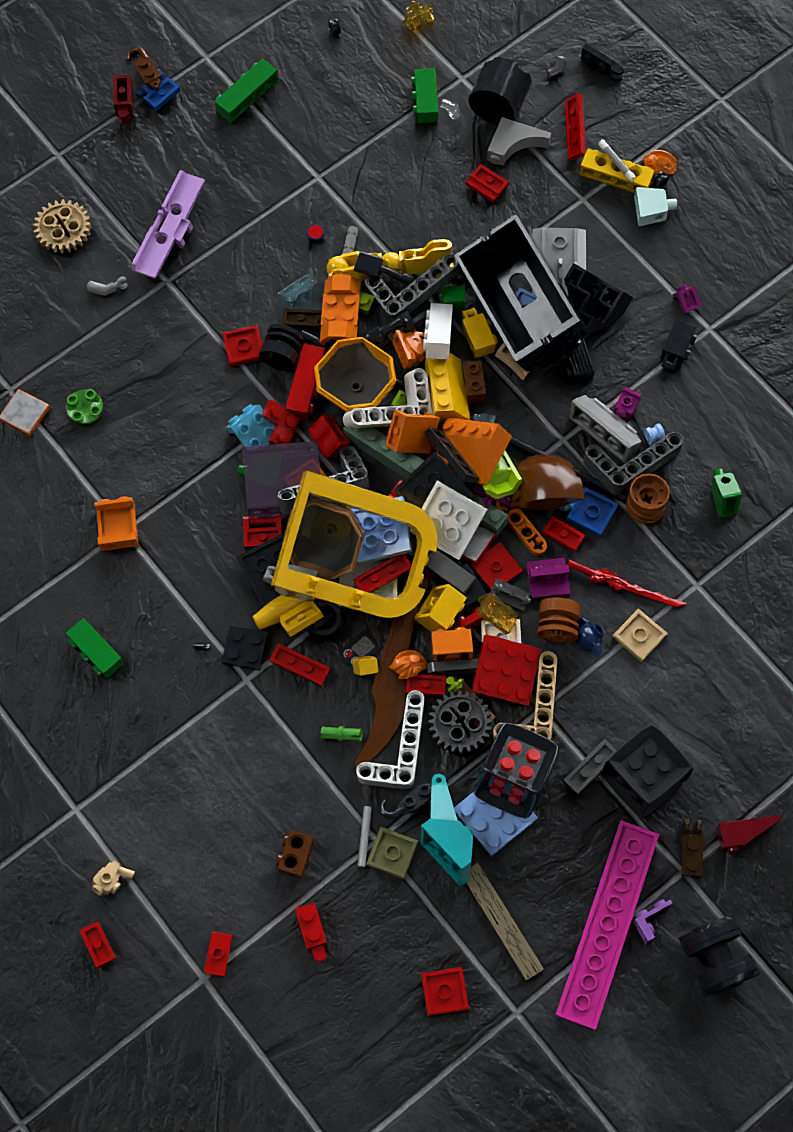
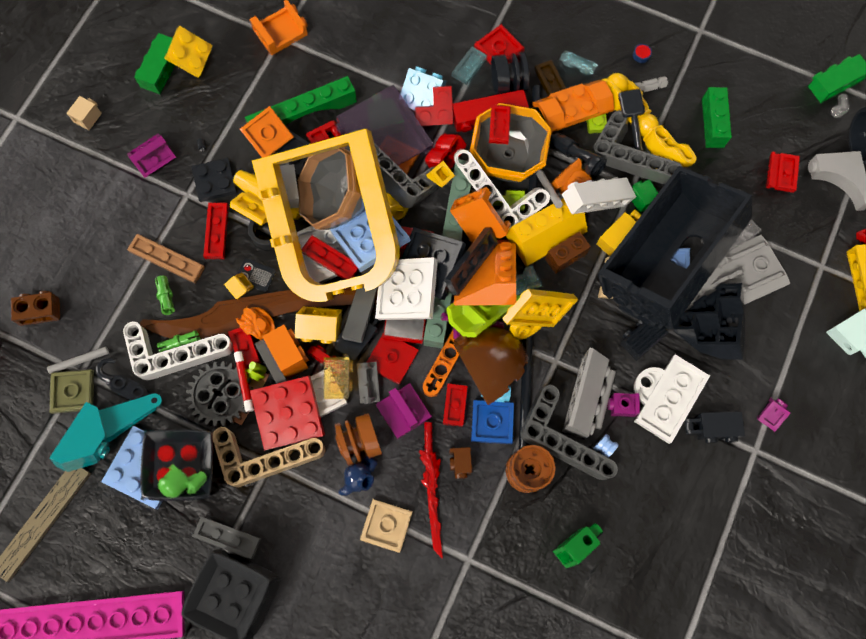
camera: 60 degrees right, 5 degrees up
(99, 614) = (188, 51): none -> yellow plate
(113, 735) = (84, 112): none -> tan brick
(189, 692) = (151, 155): none -> magenta bracket
(215, 551) = (330, 96): none -> green arch
(231, 575) = (266, 132): none -> orange tile
(249, 378) = (469, 65): none -> clear light blue plate
(302, 721) = (166, 258): none -> medium nougat tile
(339, 373) = (499, 124): none -> red plate
(353, 446) = (440, 174): none -> yellow slope
(393, 739) = (178, 341): none -> bright green pin
(409, 367) = (548, 187): none -> light grey bar
(411, 207) = (716, 117): none -> green brick
(460, 694) = (243, 381): none -> red bar
(521, 425) = (537, 310): none -> yellow plate
(540, 758) = (176, 482): none -> bright green piece
(615, 551) = (460, 462): none -> reddish brown brick
(636, 367) = (668, 397): none -> white plate

